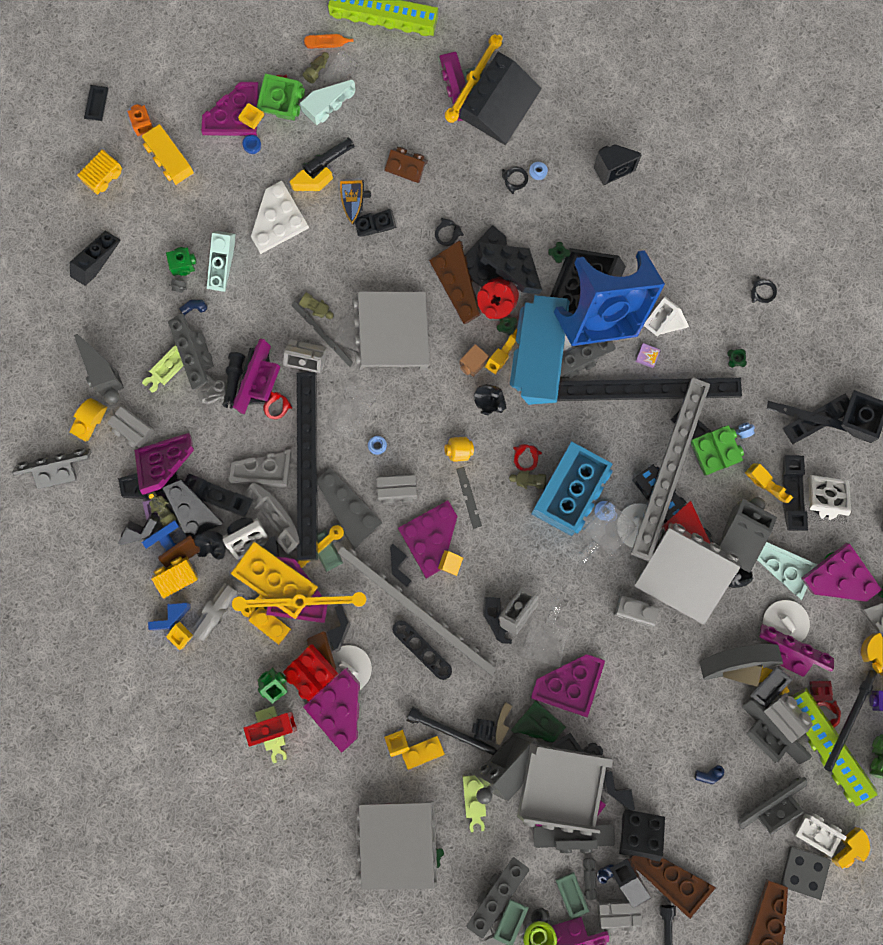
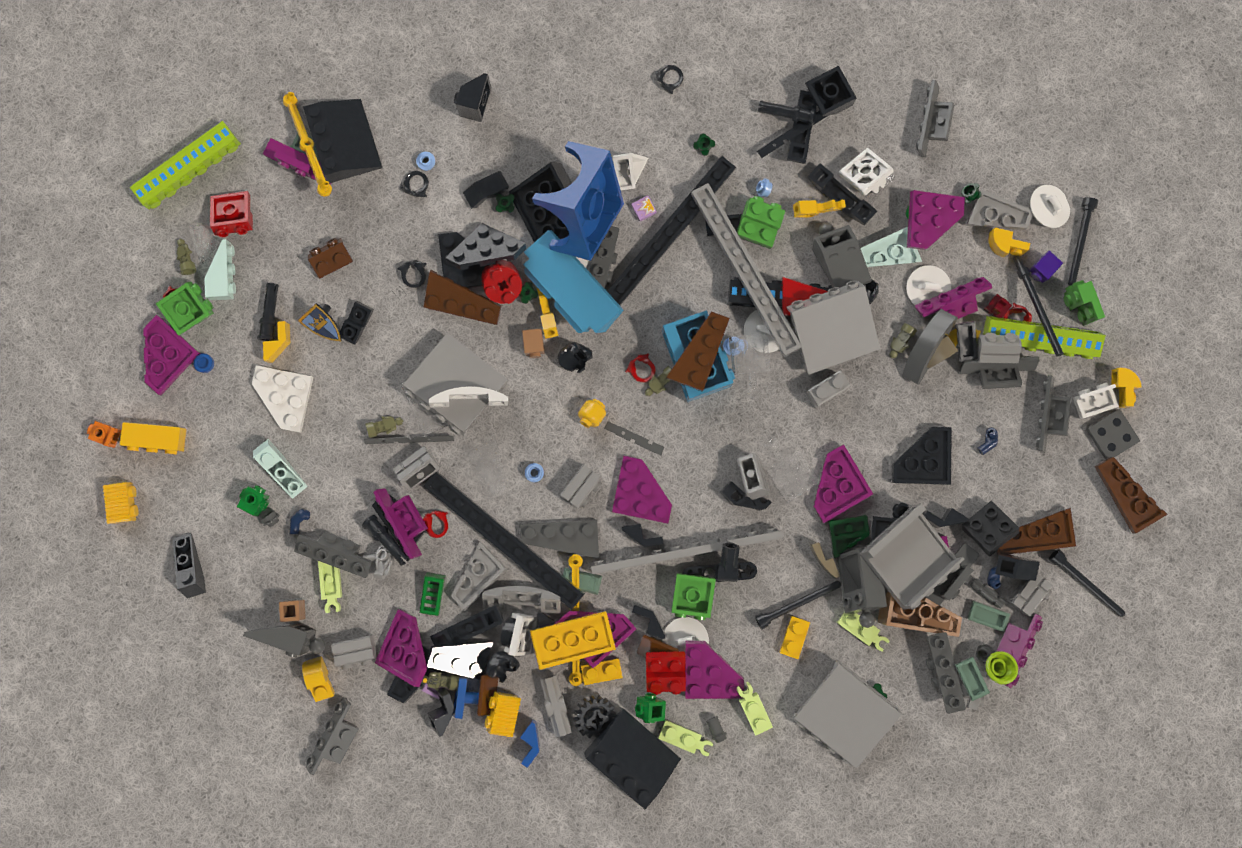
camera: 50 degrees left, 5 degrees up
(96, 103) = (56, 457): black tile -> none
(123, 357) = (292, 610): none -> medium nougat brick
(179, 635) = (551, 747): yellow tile -> none
(221, 704) = (632, 758): none -> black slope
(225, 453) = (435, 578): none -> green slope
(234, 655) = (593, 716): none -> black gear
(240, 603) = (569, 681): yellow piece -> none
(251, 116) = (181, 344): yellow tile -> none
(270, 729) = (682, 737): red bracket -> none
(299, 752) = (716, 729): none -> dark grey pin
(326, 41) = (169, 231): orange piece -> none
(339, 769) = (754, 710): none -> yellowish green plate
(372, 328) = (494, 397): none -> white slope
(376, 70) = (230, 214): none -> red plate
(386, 644) = (693, 596): none -> bright green plate
(397, 743) = (772, 651): yellow tile -> none
(433, 650) = (728, 566): none -> black piece
(450, 563) = (672, 495): yellow tile -> none
(484, 729) = (817, 577): black gear -> none
(525, 840) = (926, 617): none -> medium nougat wedge
(557, 229) = (485, 188): none -> black slope
(574, 487) = (697, 359): none -> reddish brown wing
(651, 737) = (926, 460): none -> black plate
(721, 638) = (900, 343): none -> olive piece
(823, 404) = (796, 113): none -> black pin

